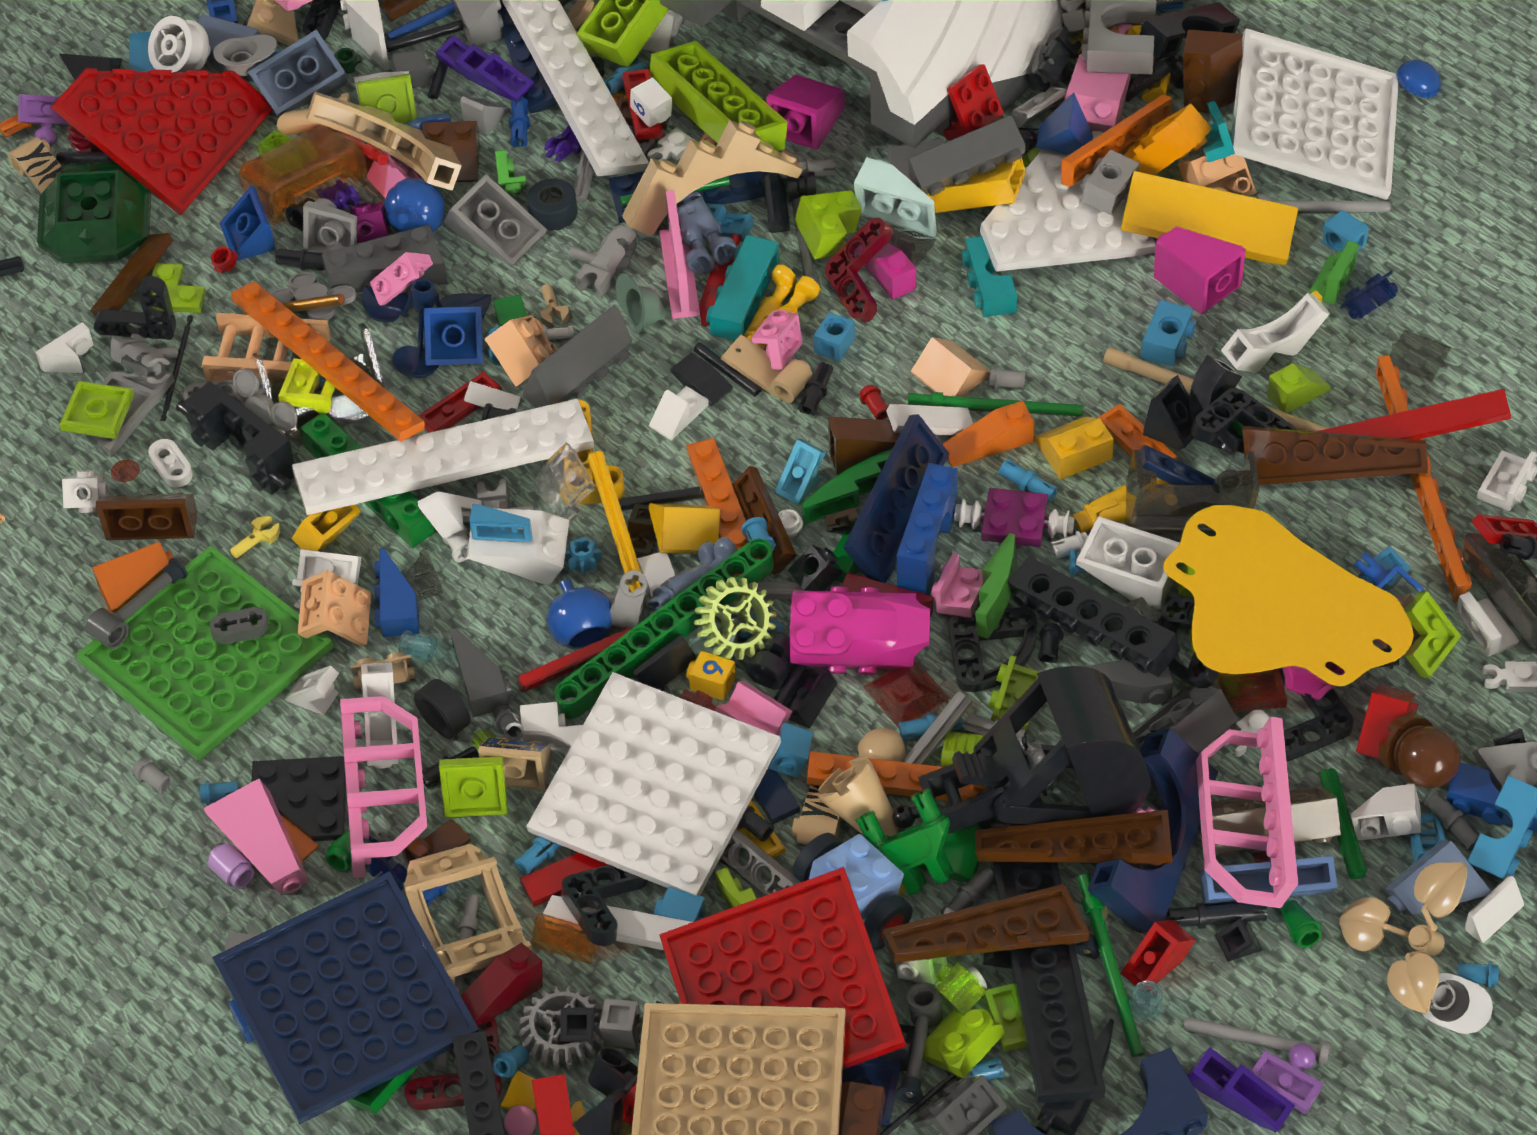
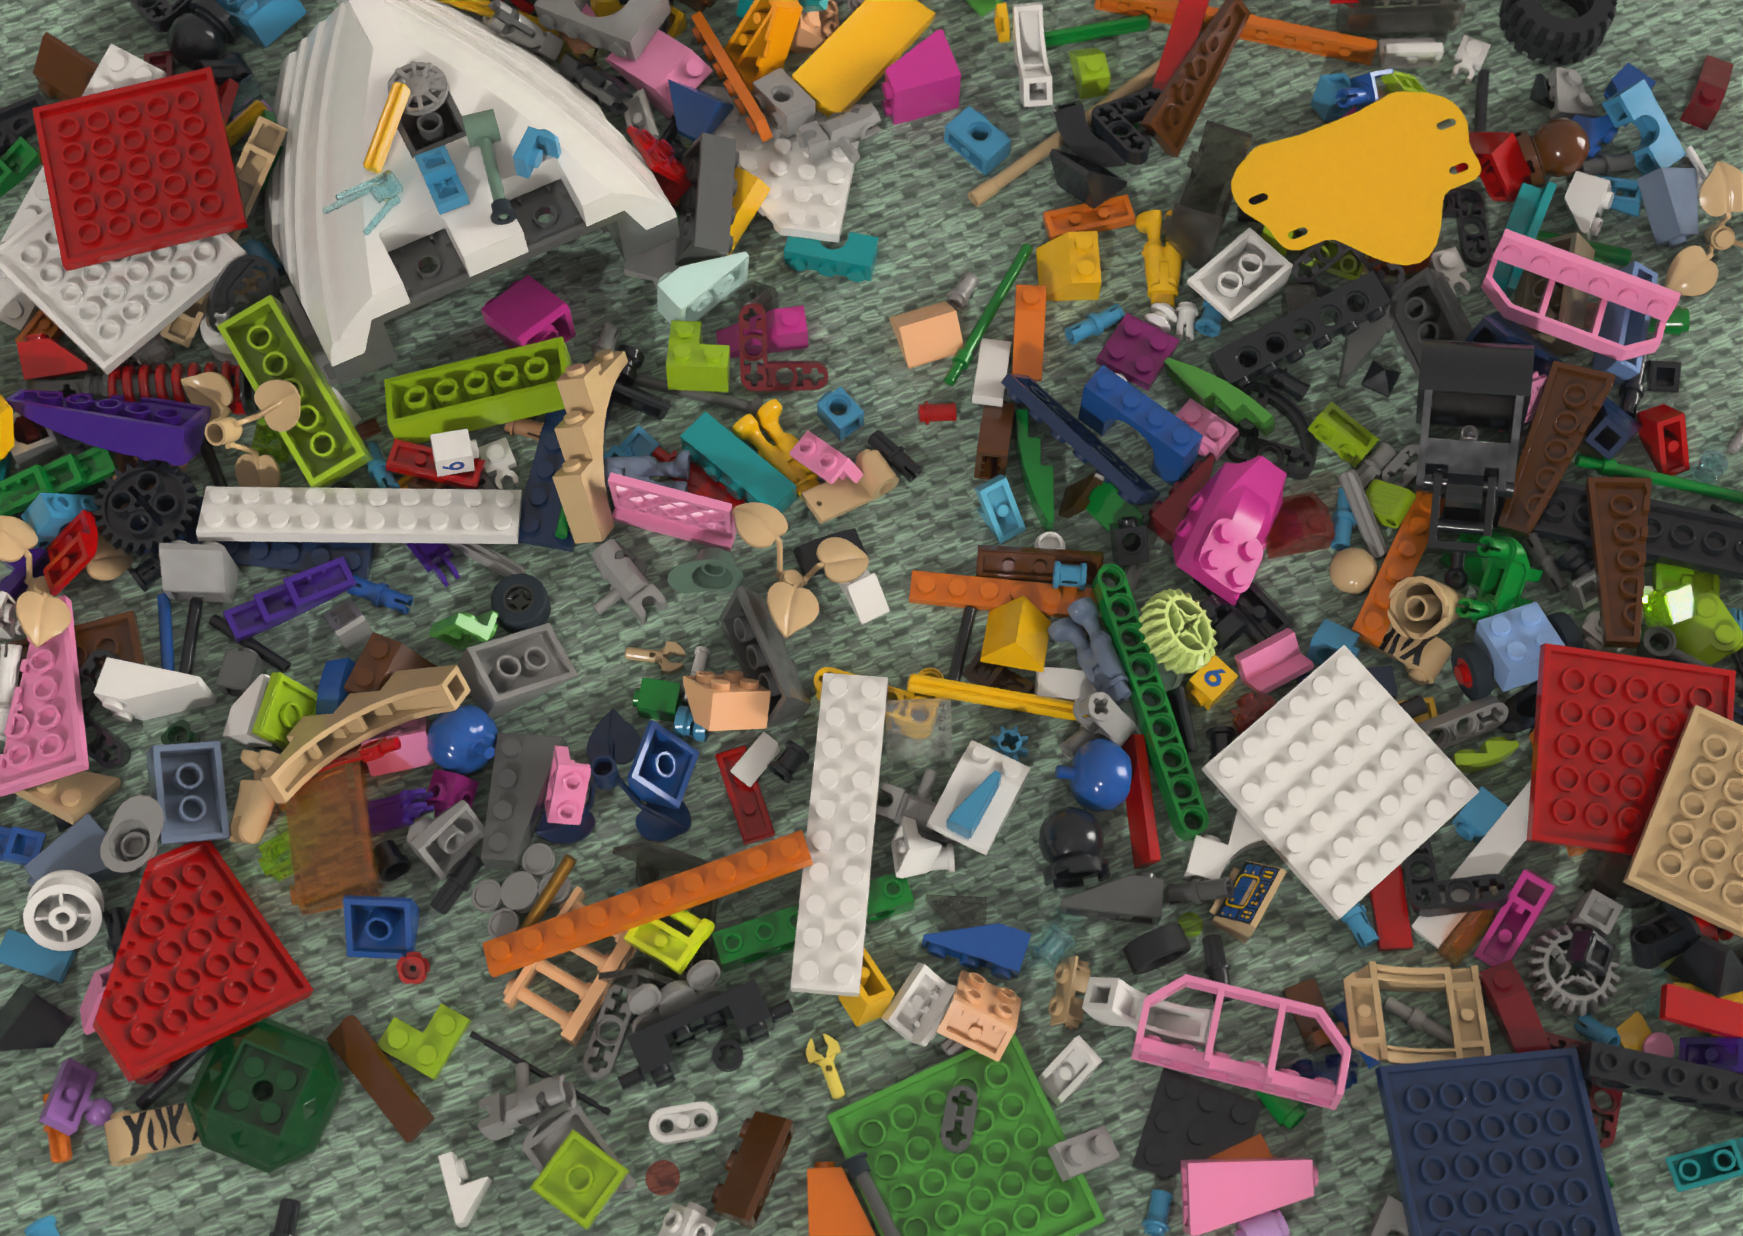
camera: 70 degrees left, 15 degrees up
(117, 322) = (474, 1066): black beam -> none
(234, 465) = (738, 1055): none -> black bush
(246, 719) = (1083, 1153): none -> light grey plate
(473, 786) = (1270, 952): lime plate -> none
(507, 619) = (1072, 845): none -> black tile
(600, 969) = (1516, 918): none -> dark pink slope
(618, 345) = (787, 600): none -> tan plant
(726, 369) = (817, 528): black piece -> none
(1106, 229) = (839, 131): none -> light grey piece
(1172, 470) = (1159, 199): dark blue tile -> none
(1321, 766) = (1524, 219): none -> teal fence
(1346, 379) = (1096, 30): none -> green axle
(1462, 703) = (1481, 101): none -> black bar

